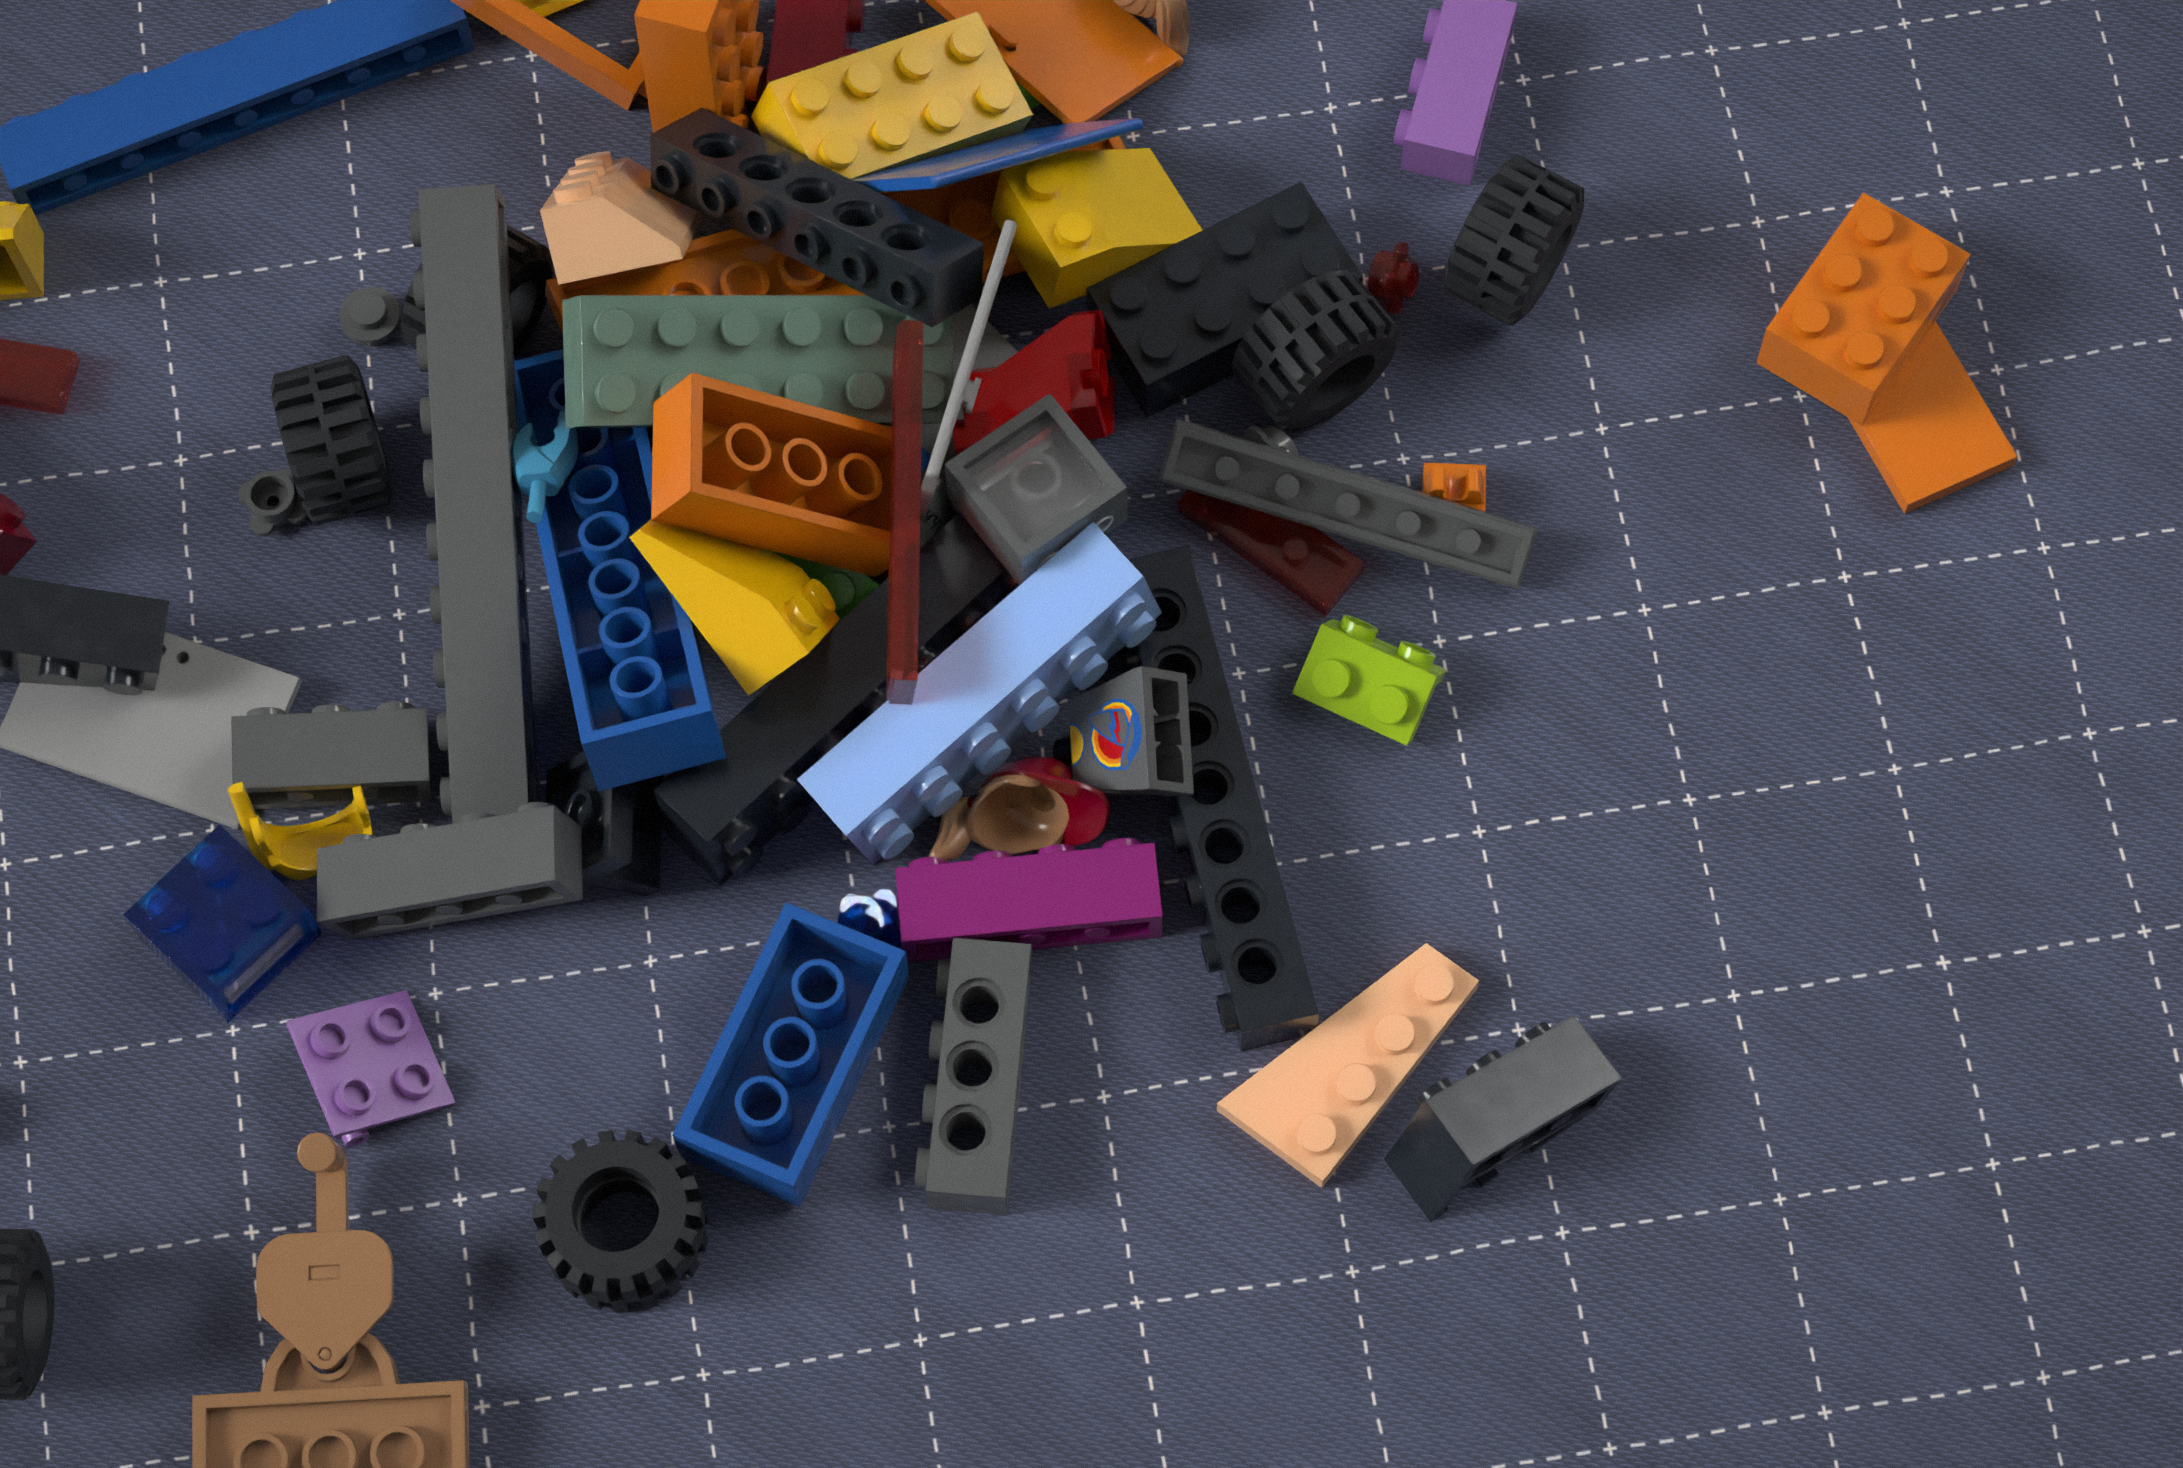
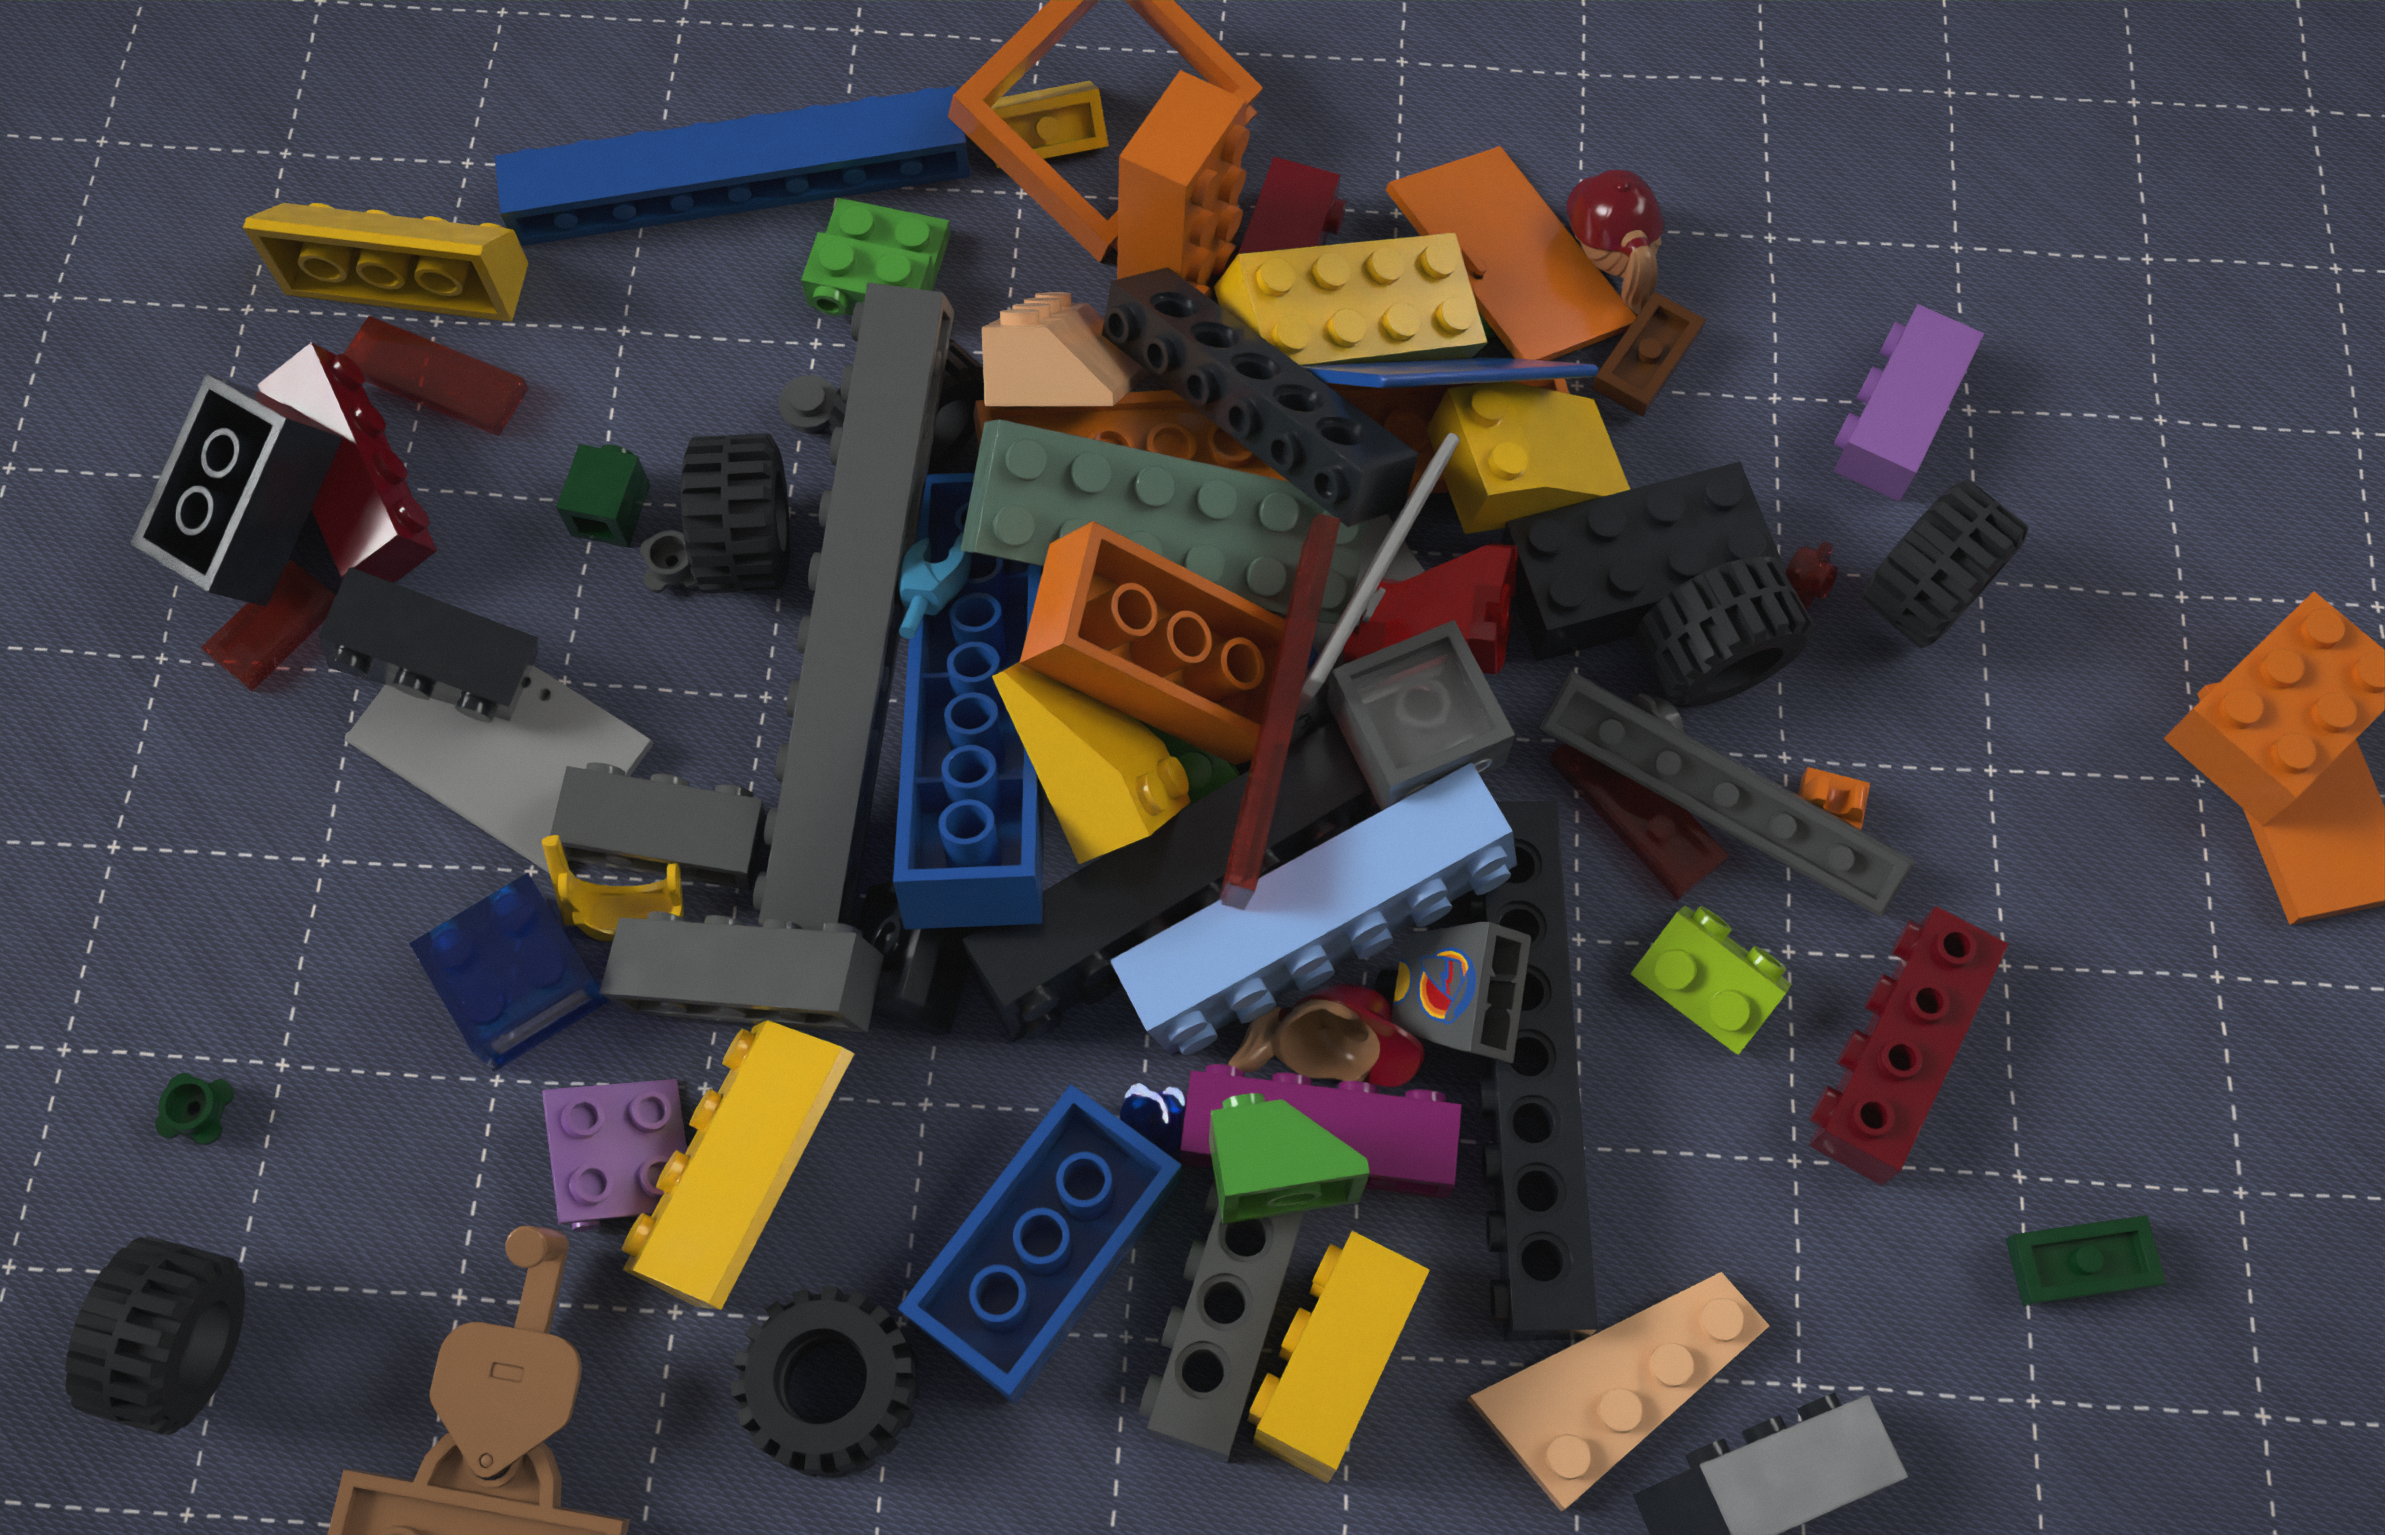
camera: 10 degrees right, 0 degrees up
(189, 450) = (603, 494): none -> dark green brick
(395, 151) = (872, 247): none -> bright green plate
(487, 1045) = (735, 1164): none -> yellow slope
(994, 924) = (1278, 1161): none -> bright green slope
(1084, 1089) = (1335, 1354): none -> yellow brick
(1196, 90) = (1648, 354): none -> reddish brown plate
(1560, 701) = (1907, 1044): none -> dark red brick
(1757, 859) = (2085, 1261): none -> dark green plate

